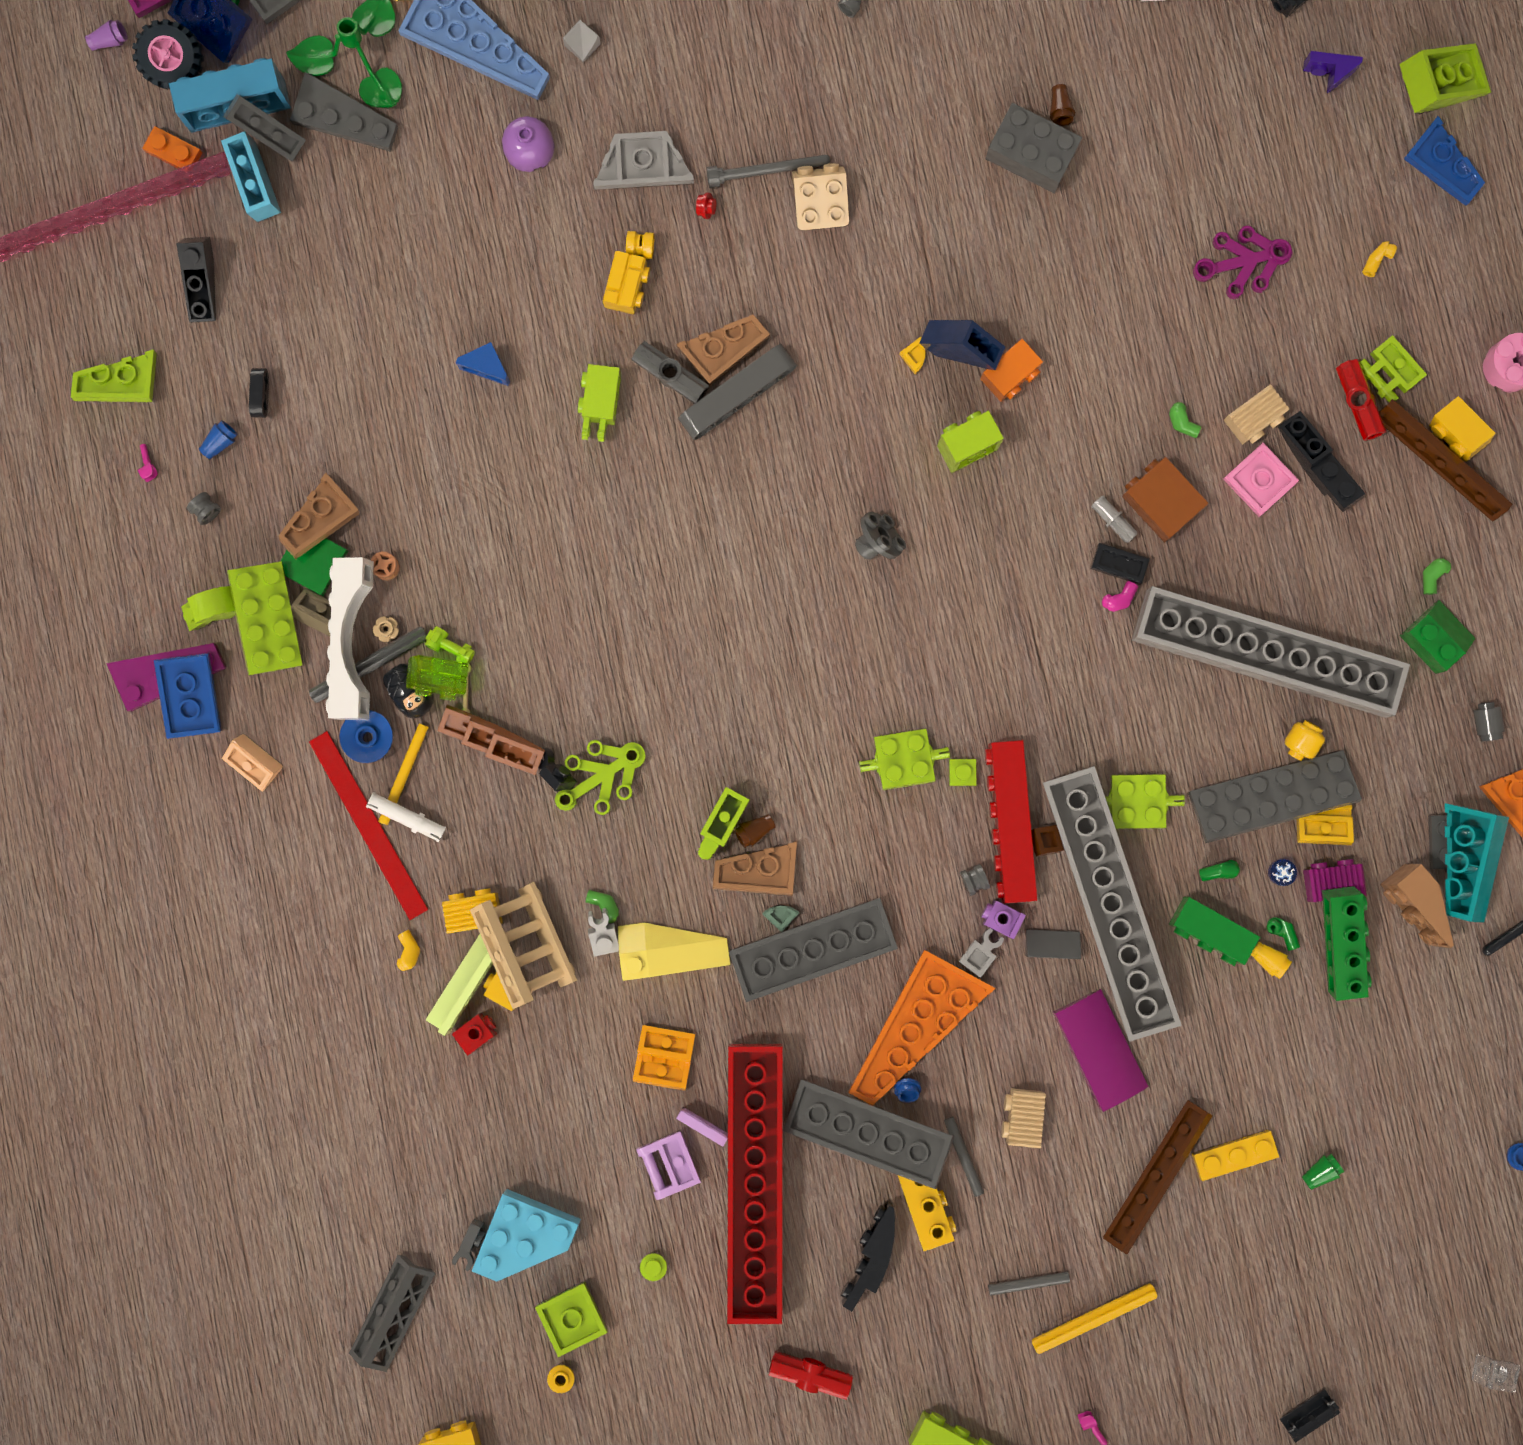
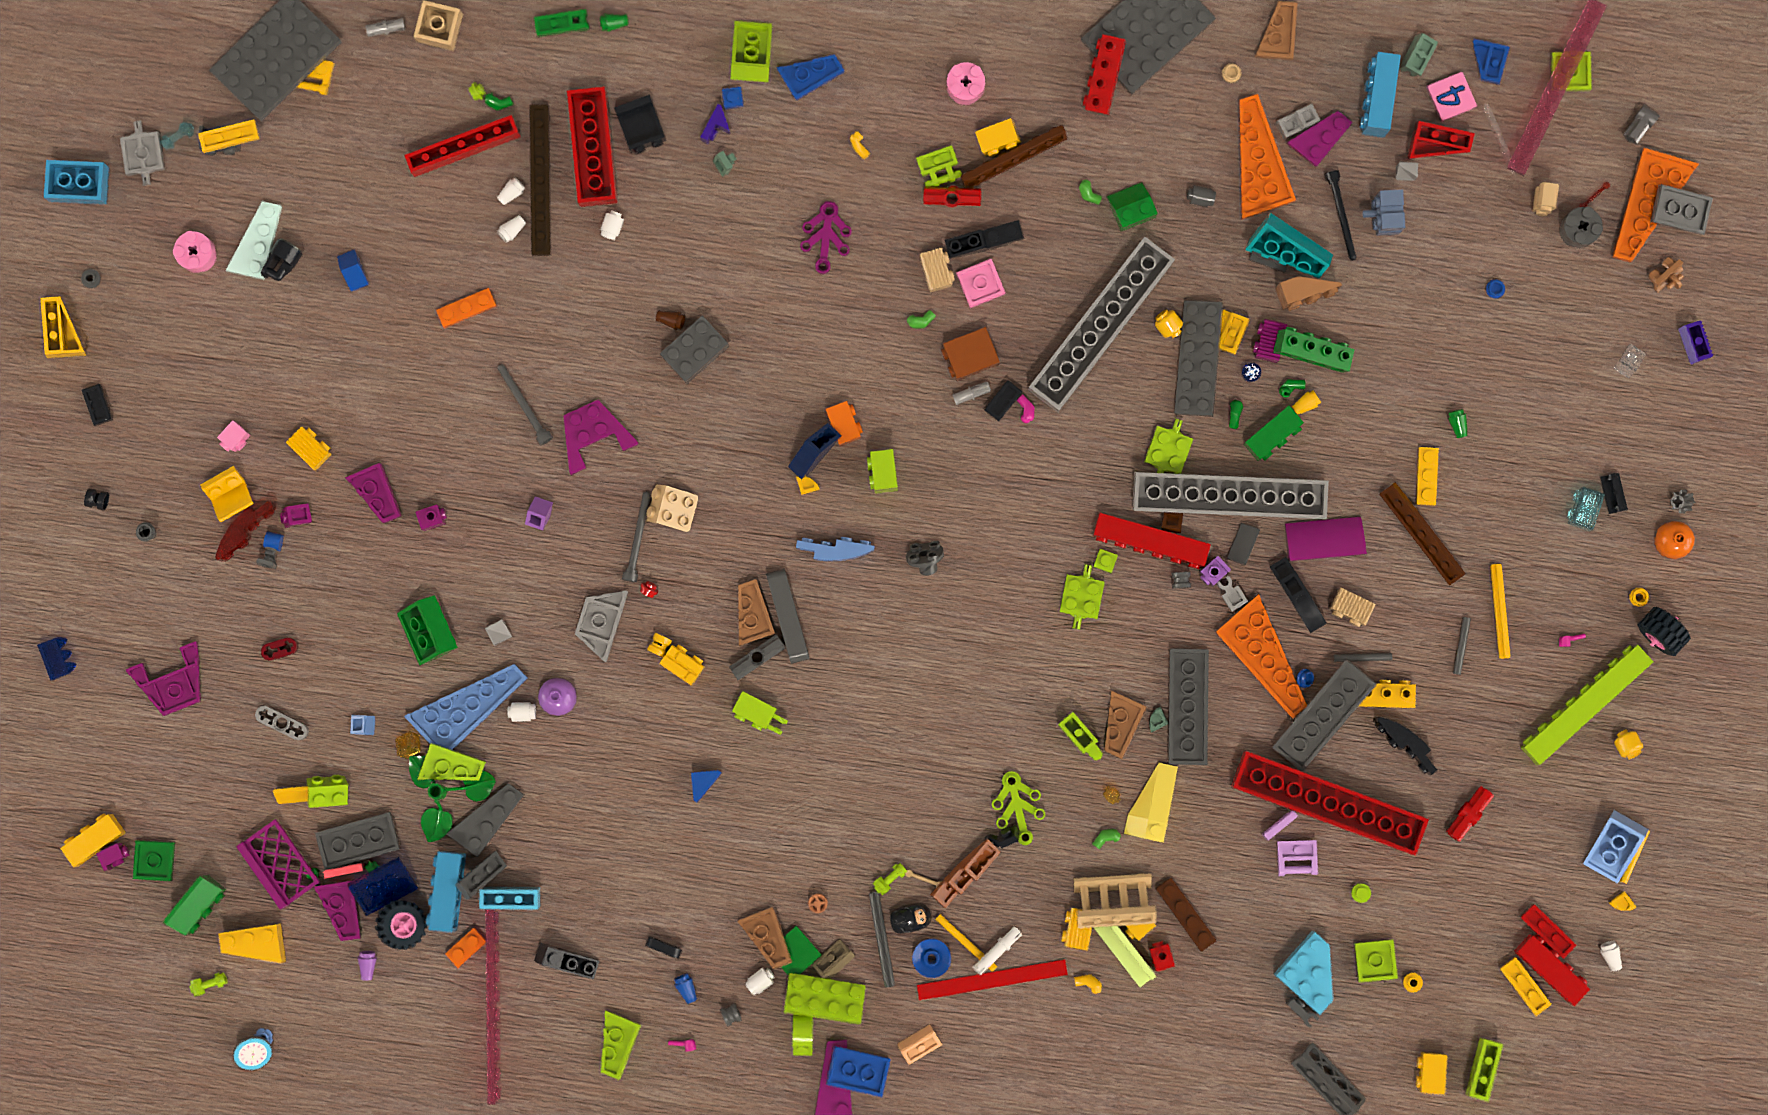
camera: 70 degrees left, 0 degrees up
(259, 529) = (760, 981): none -> white brick
(350, 585) = (899, 959): white arch -> none
(386, 636) = (861, 913): tan plate -> none
(391, 37) = (449, 764): none -> lime wing
(437, 676) = (909, 894): clear neon green brick -> none
(492, 106) = (522, 711): none -> white brick
(541, 1045) = (1186, 914): none -> reddish brown plate
(602, 936) = (1126, 845): plate -> none
(661, 892) = (1112, 795): none -> clear yellow plate
(663, 1057) = (1224, 834): light orange slope -> none
(750, 31) = (538, 513): none -> medium lavender brick
(754, 830) = (1093, 717): reddish brown cone -> none
(847, 429) = (843, 550): none -> medium blue slope
(885, 56) = (589, 426): none -> magenta wing
(1013, 1041) = (1298, 595): none -> black slope
(1274, 1385) = (1585, 508): none -> clear light blue brick
(1288, 97) = (724, 163): none -> sand green tile
(1375, 78) = (732, 97): none -> blue plate

